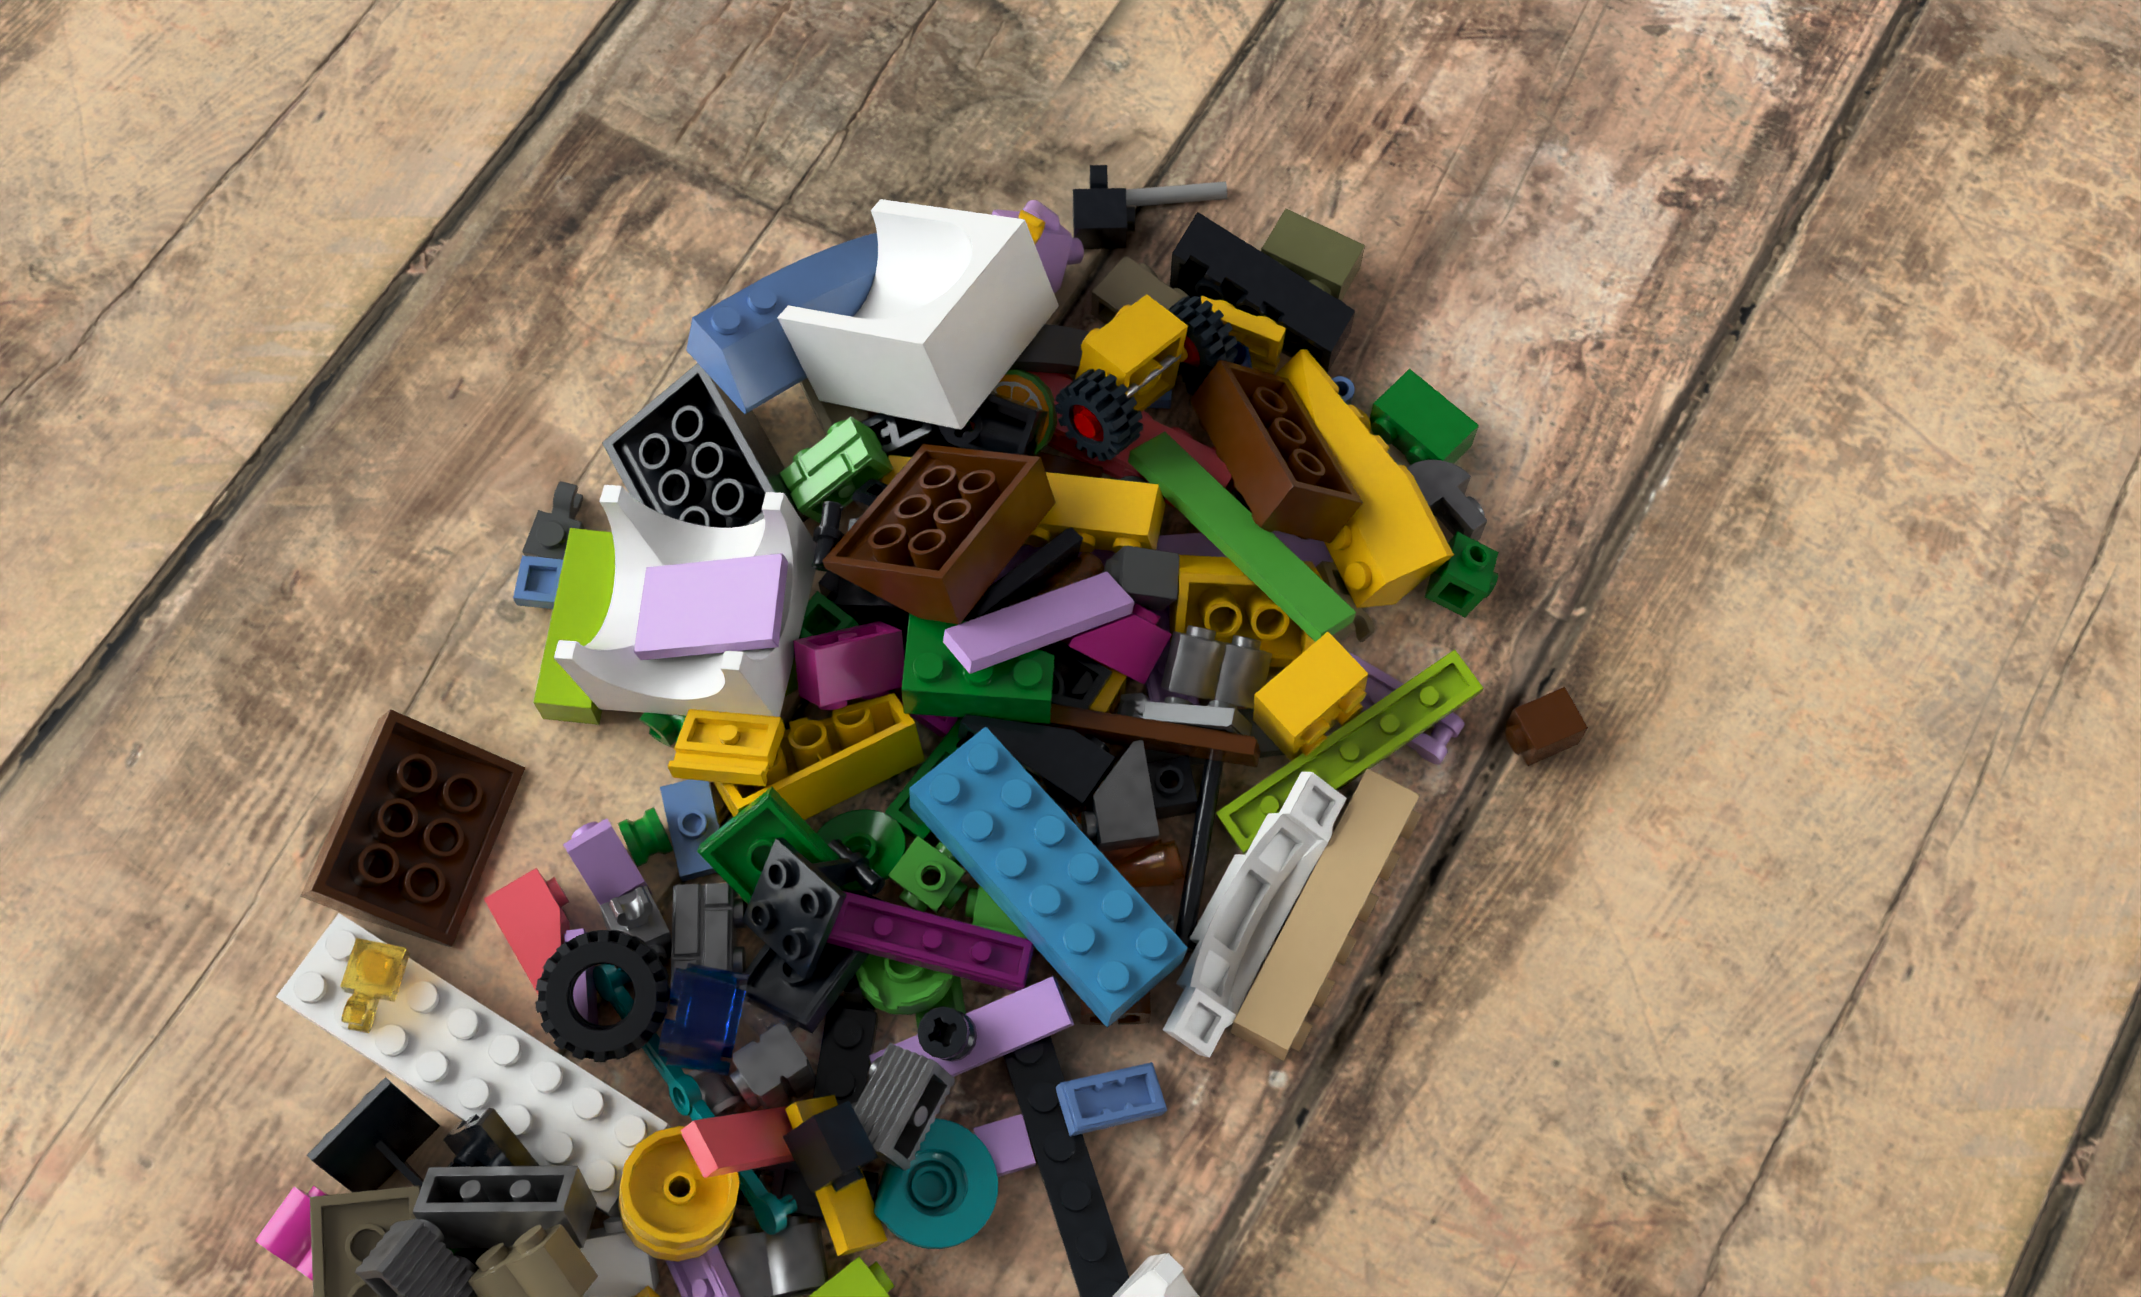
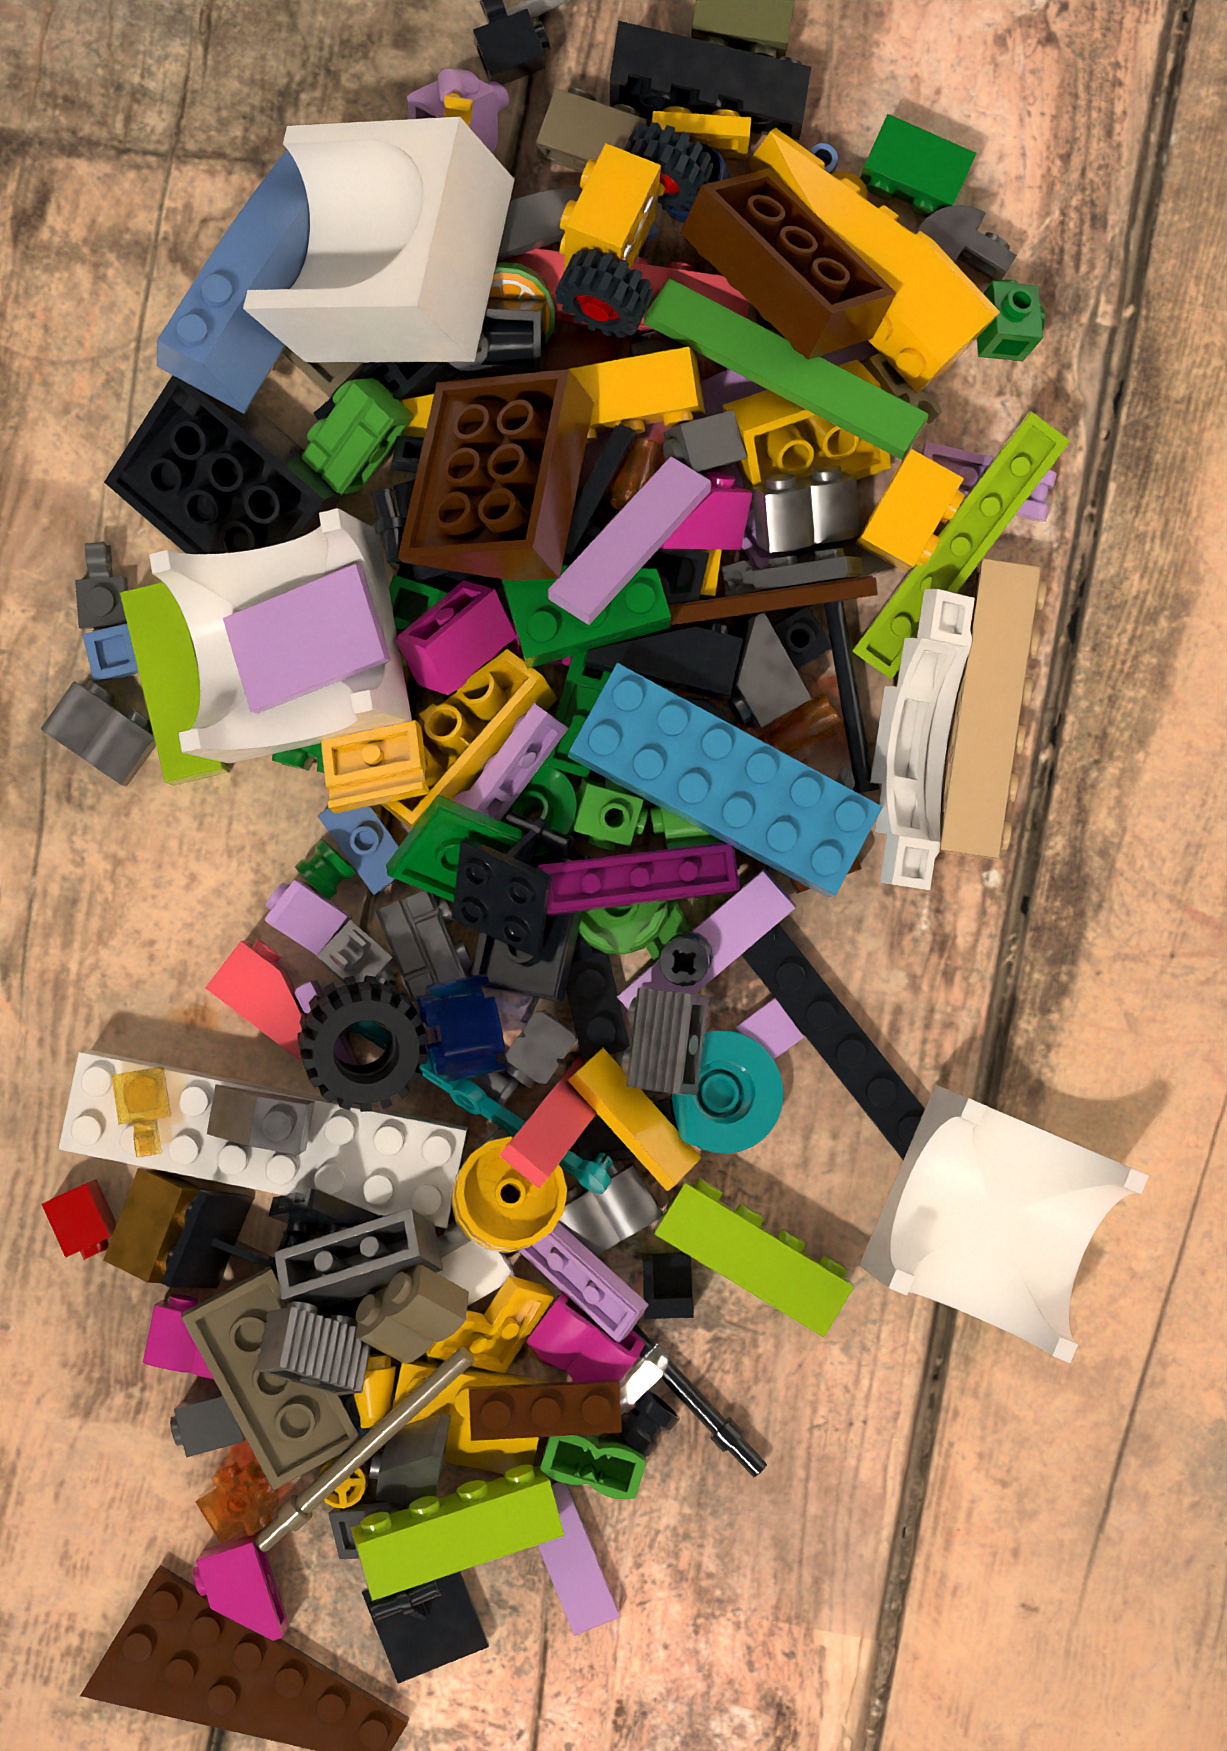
camera: 15 degrees left, 20 degrees up
(267, 1080) = (81, 1220): none -> red brick
(322, 1103) = (150, 1224): none -> pearl gold brick
(414, 830) = (104, 942): reddish brown slope -> none
(478, 1032) = (260, 1119): none -> flat silver slope
(498, 644) = (100, 732): none -> flat silver brick
(831, 1148) = (628, 1106): black brick -> none
(859, 796) = (514, 764): none -> lavender plate
(1111, 1099) = (851, 956): medium blue plate -> none
(1545, 726) = (1134, 449): reddish brown brick -> none

